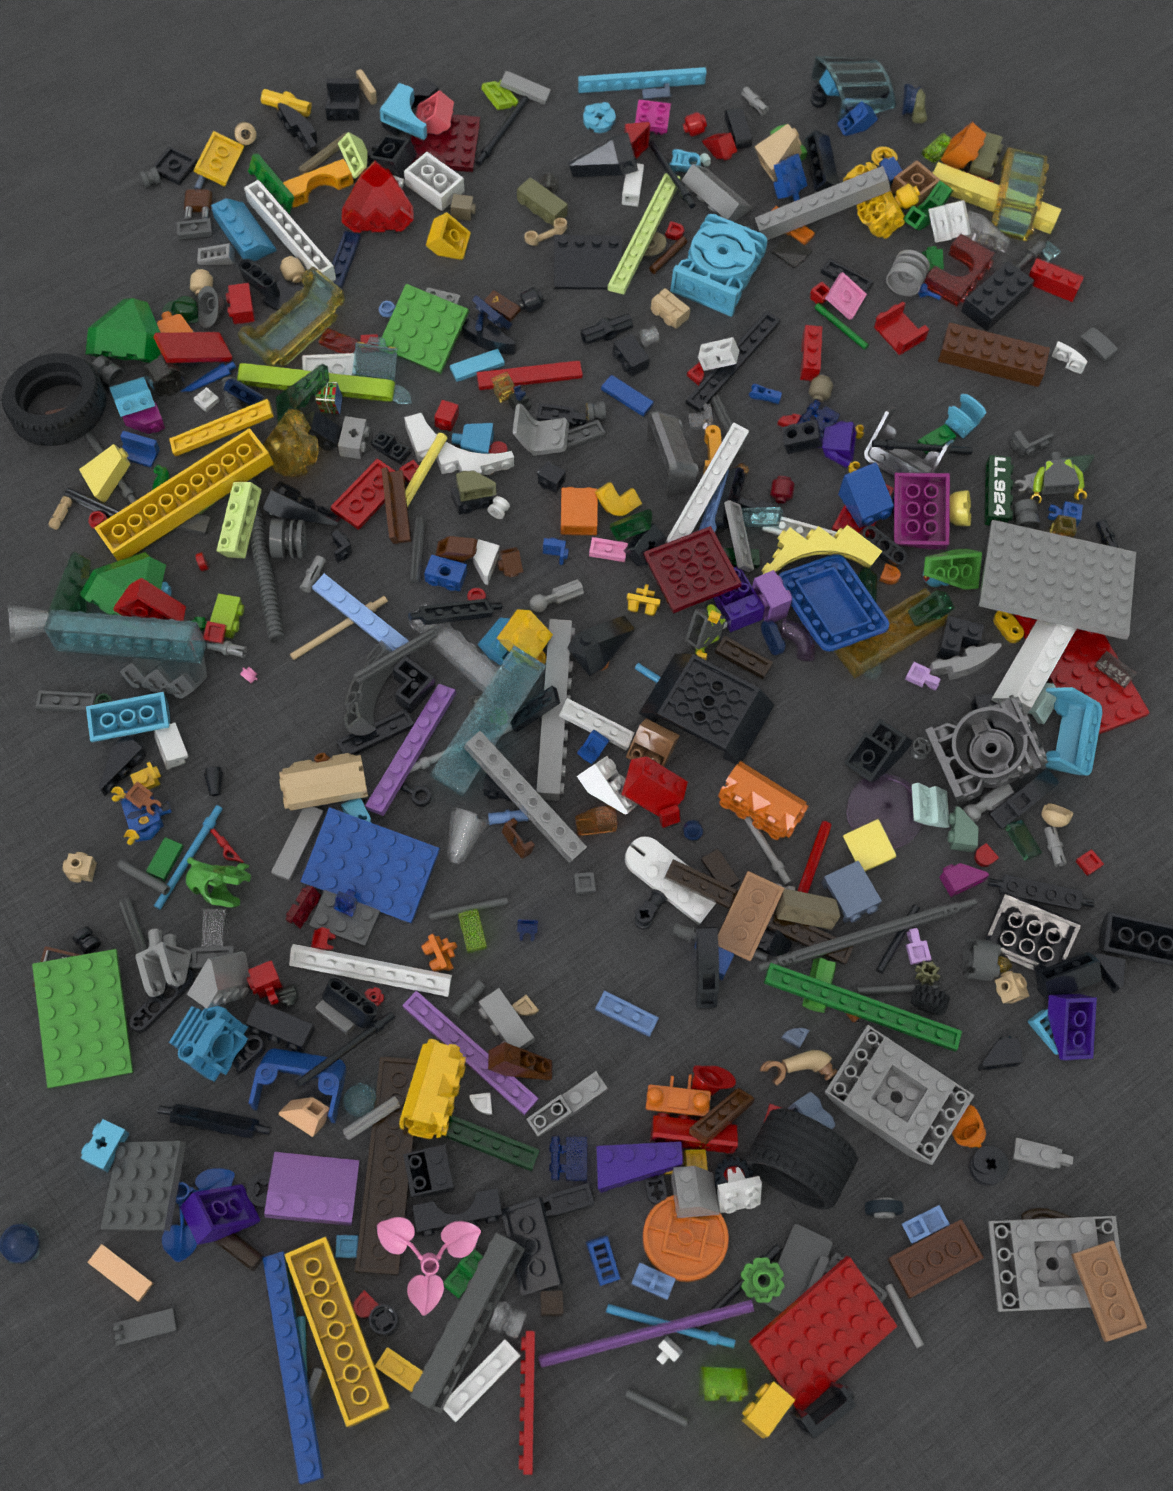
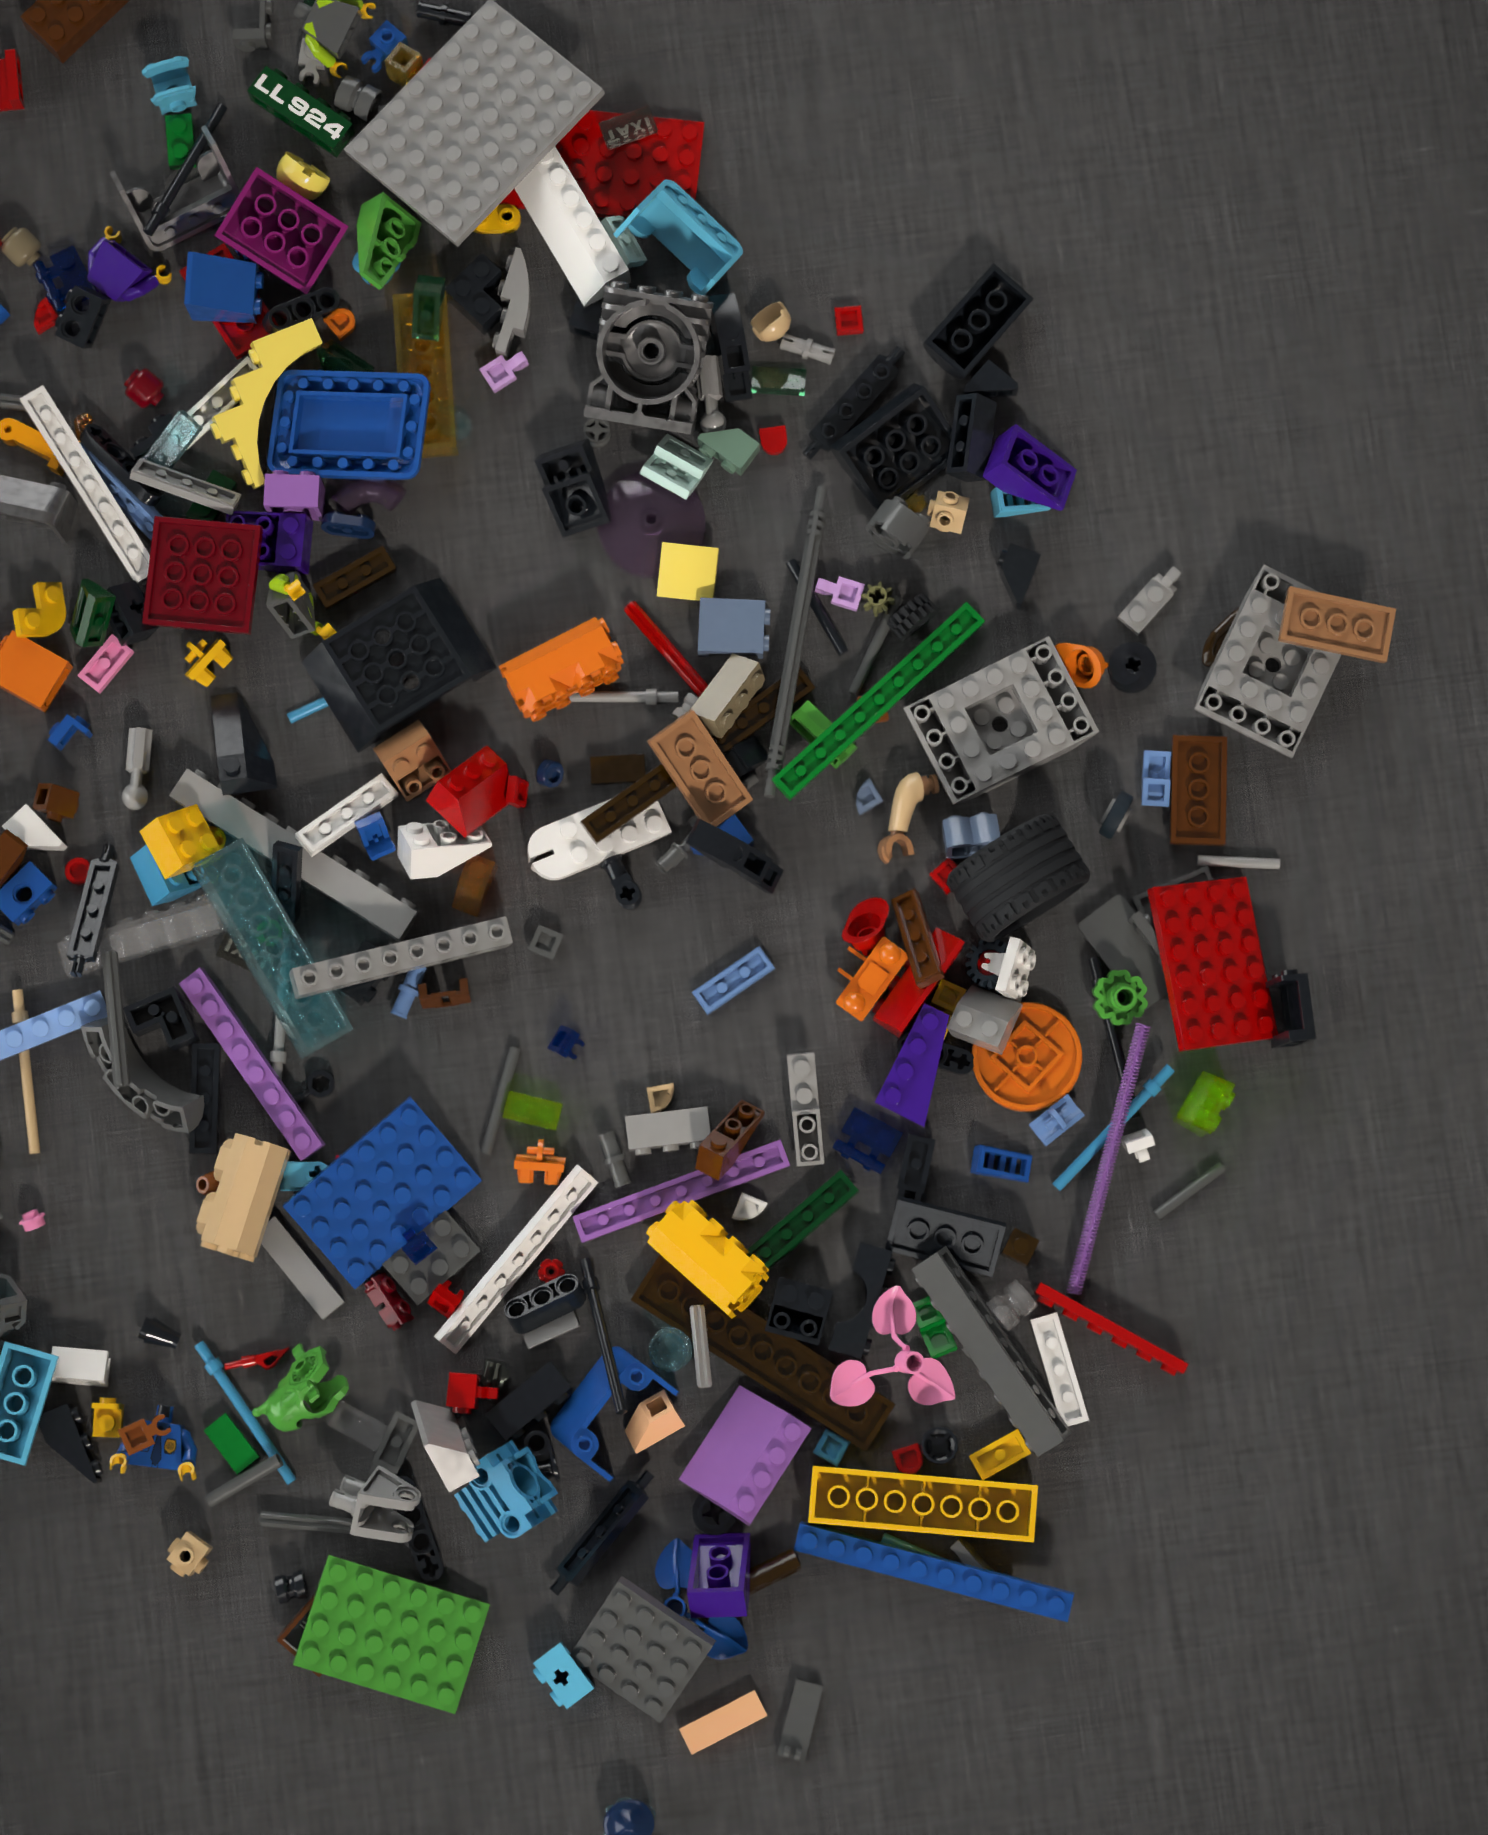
camera: 55 degrees left, 15 degrees up
(463, 834) = (404, 1057): clear cone -> none
(767, 1410) = (1257, 1071): yellow brick -> none
(961, 878) = (786, 487): magenta slope -> none

